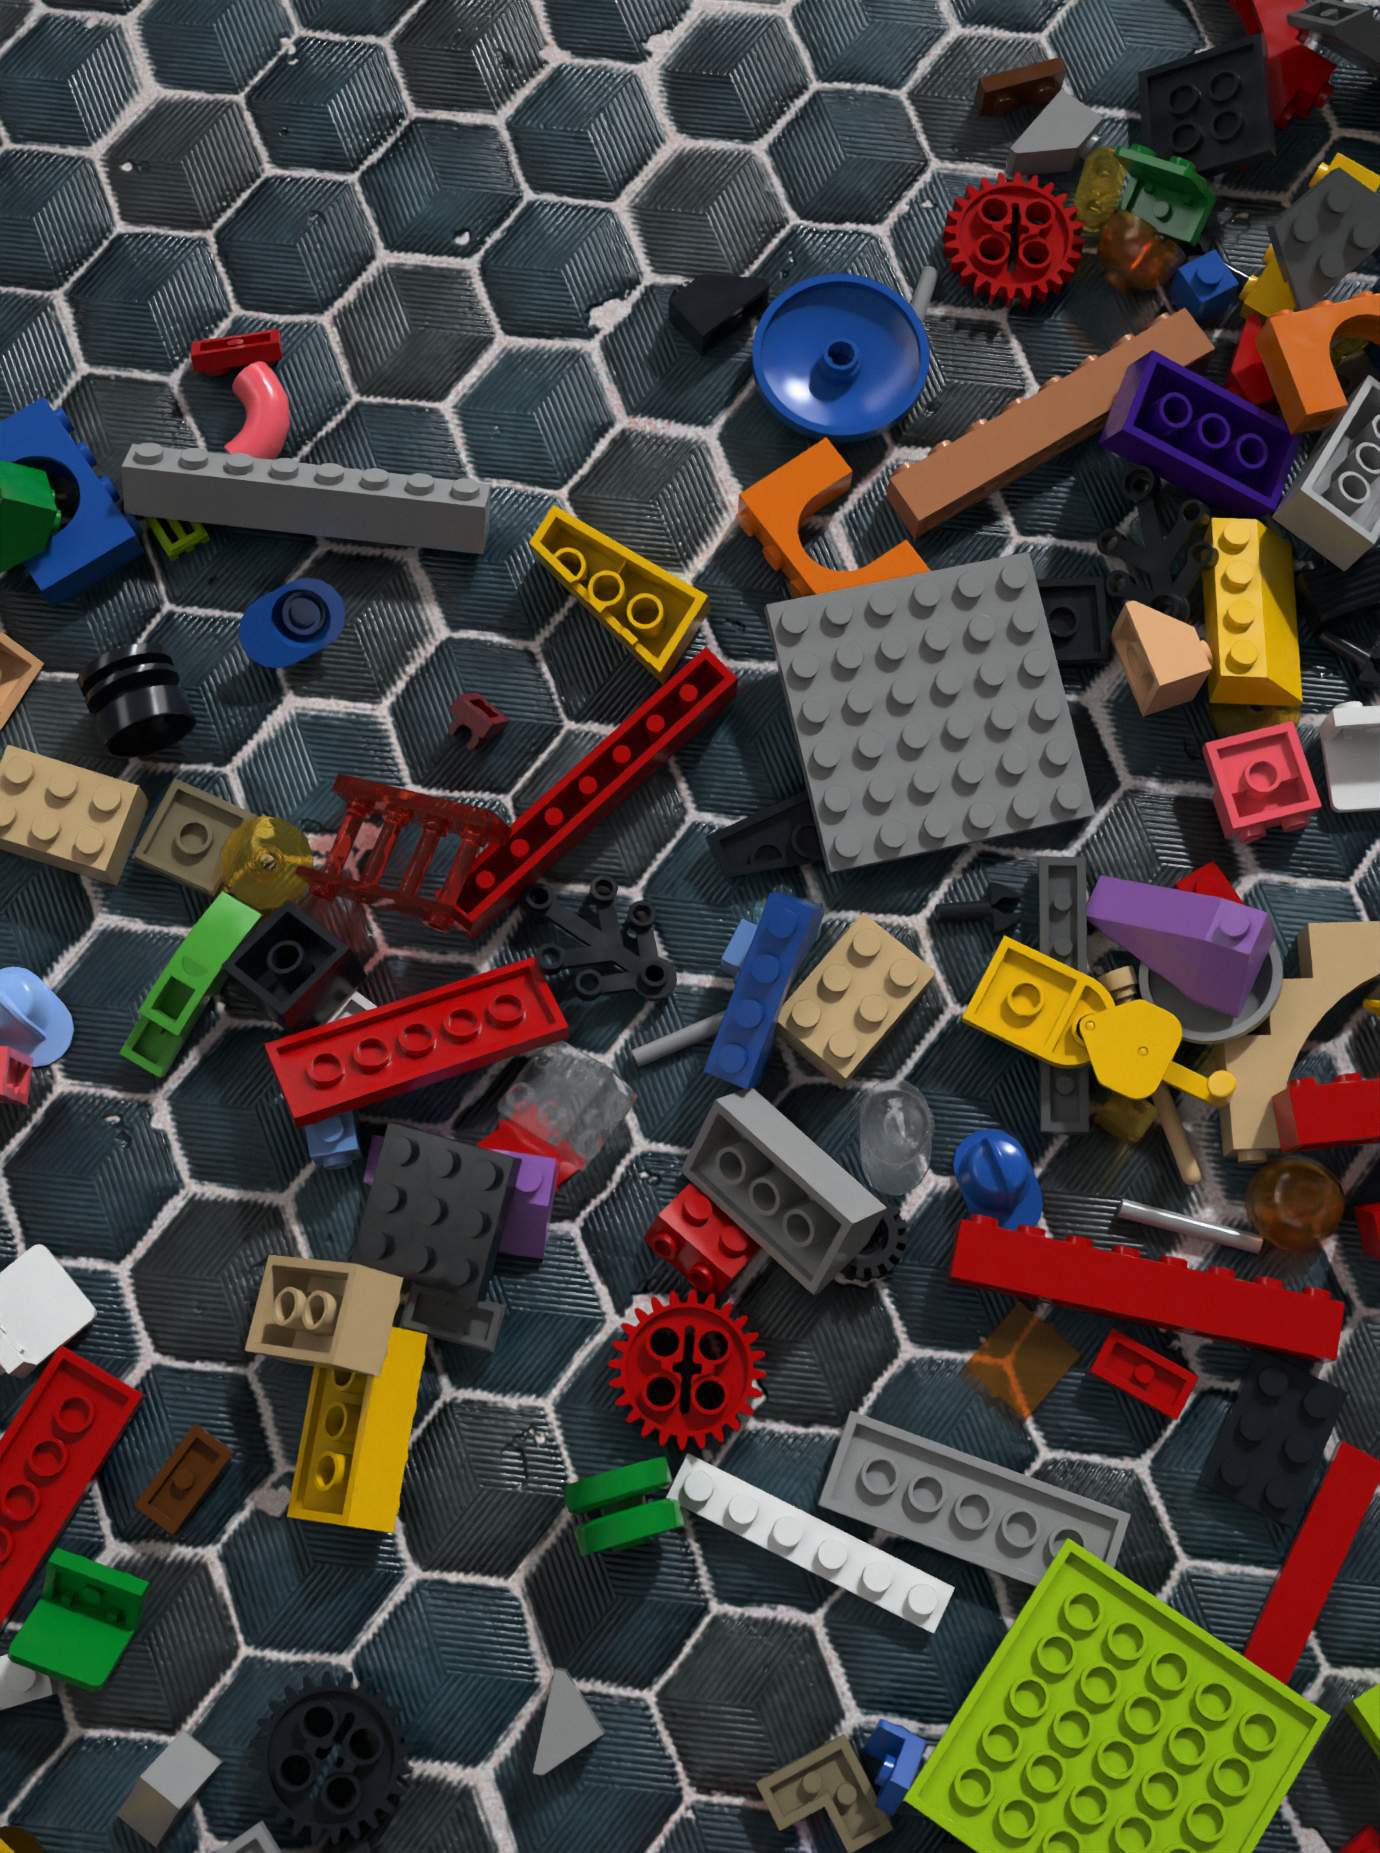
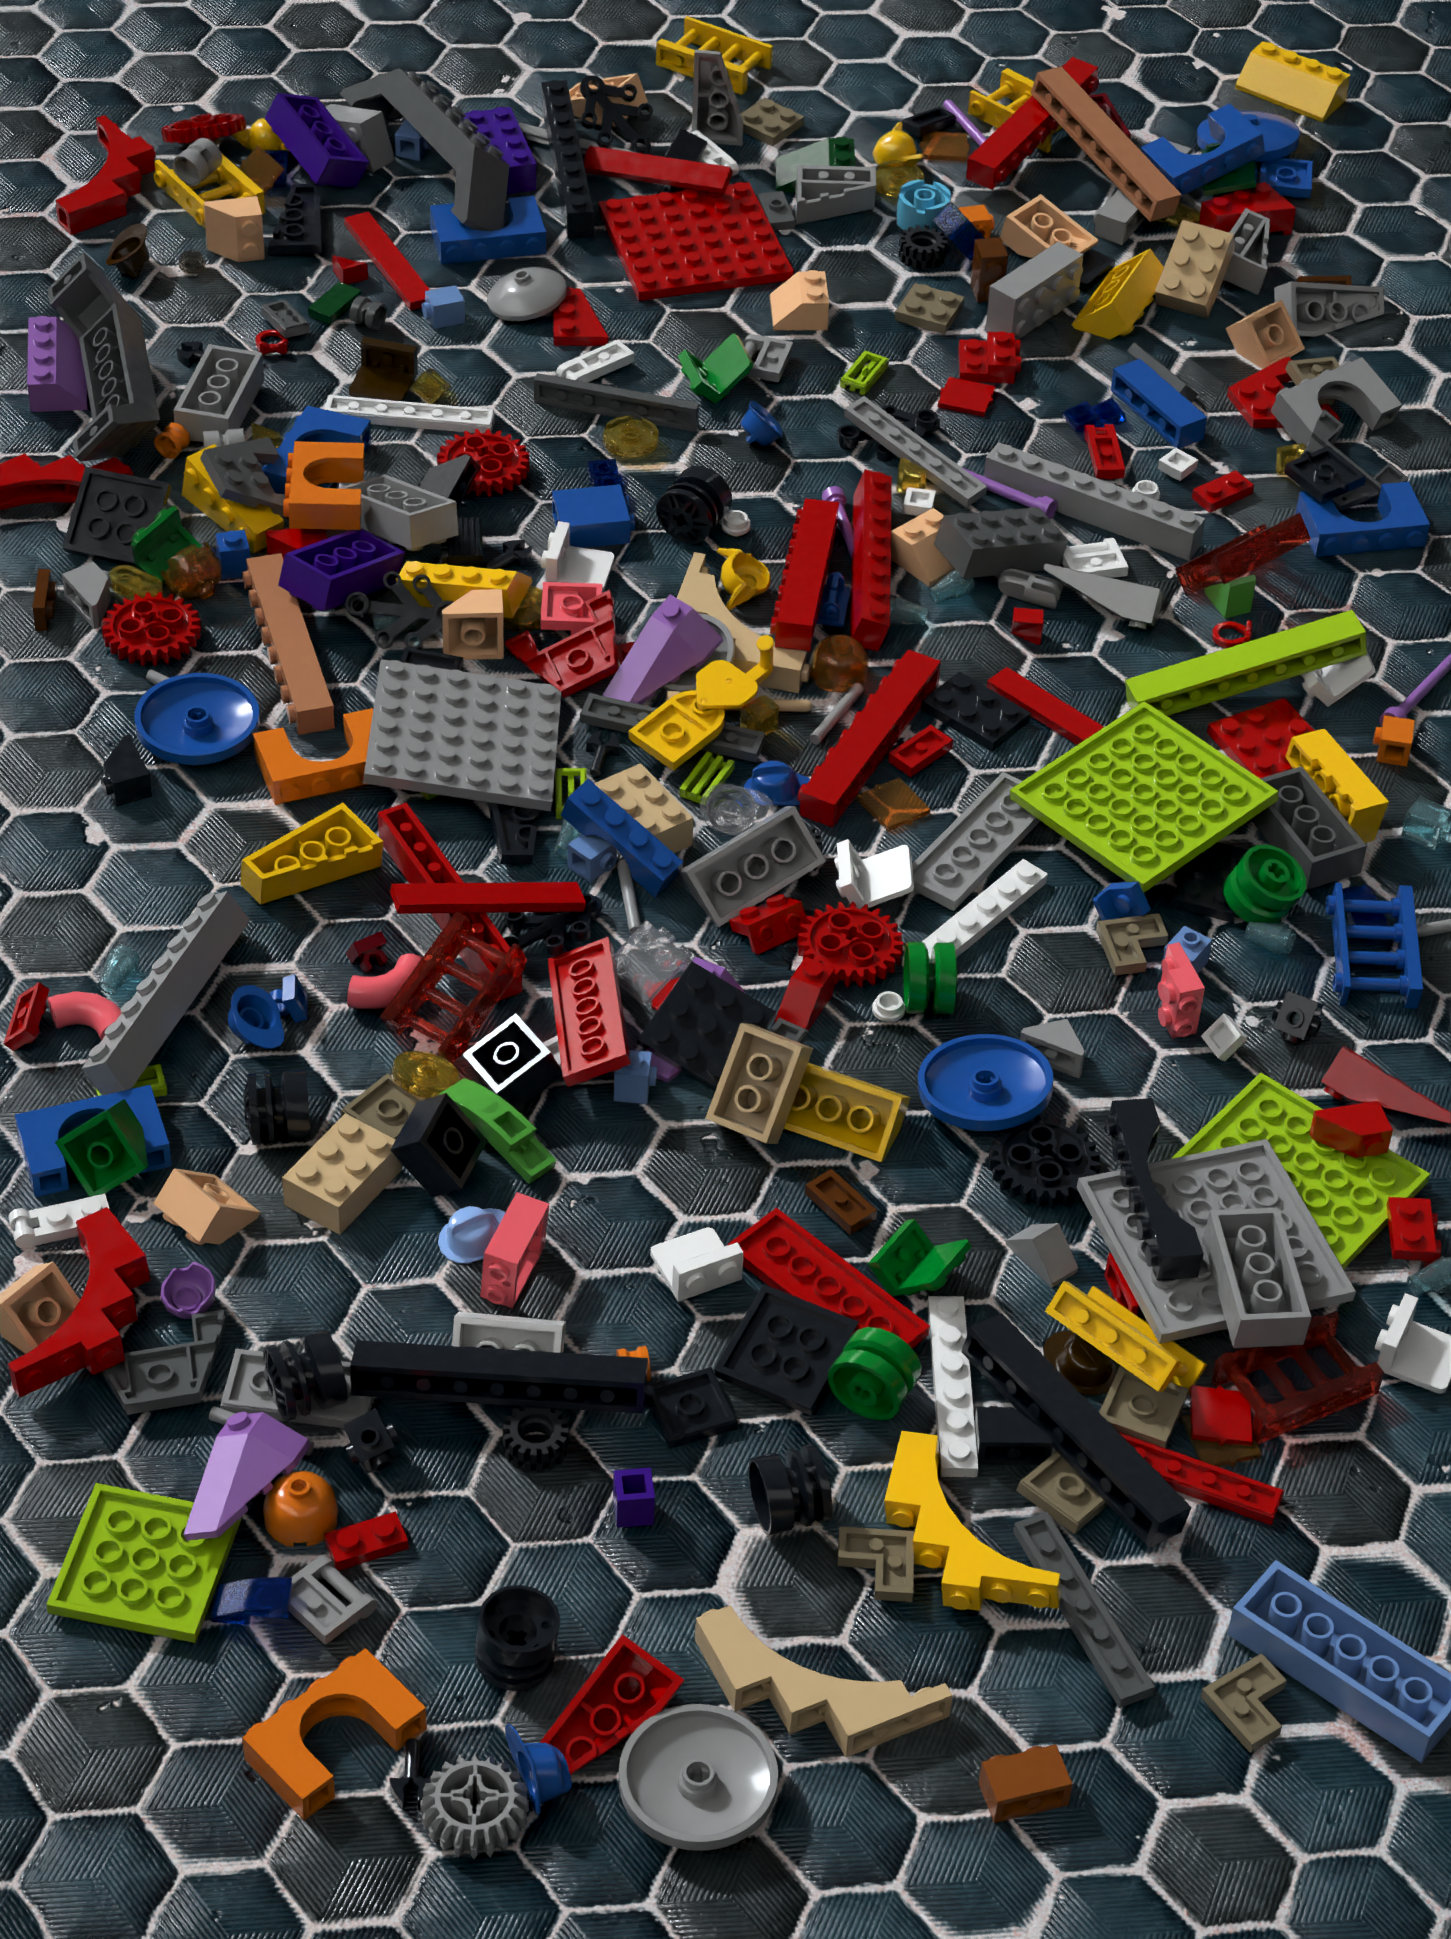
camera: 75 degrees left, 30 degrees down
(114, 920) = (439, 1145): none -> black brick
(354, 426) = (118, 968): none -> clear light blue cone
(358, 654) = (292, 999): none -> blue tile
(408, 766) = (378, 991): none -> coral cylinder
(447, 1637) = (985, 1082): none -> blue dish
(557, 1331) = (807, 993): none -> red slope
(575, 843) = (487, 897): none -> red tile
(583, 1455) = (888, 1007): none -> white plate
(831, 1370) = (875, 877): none -> white bracket
(922, 881) = (570, 772): none -> lime tile
(983, 1055) = (699, 770): none -> lime tile
(1155, 823) = (578, 658): none -> red wing

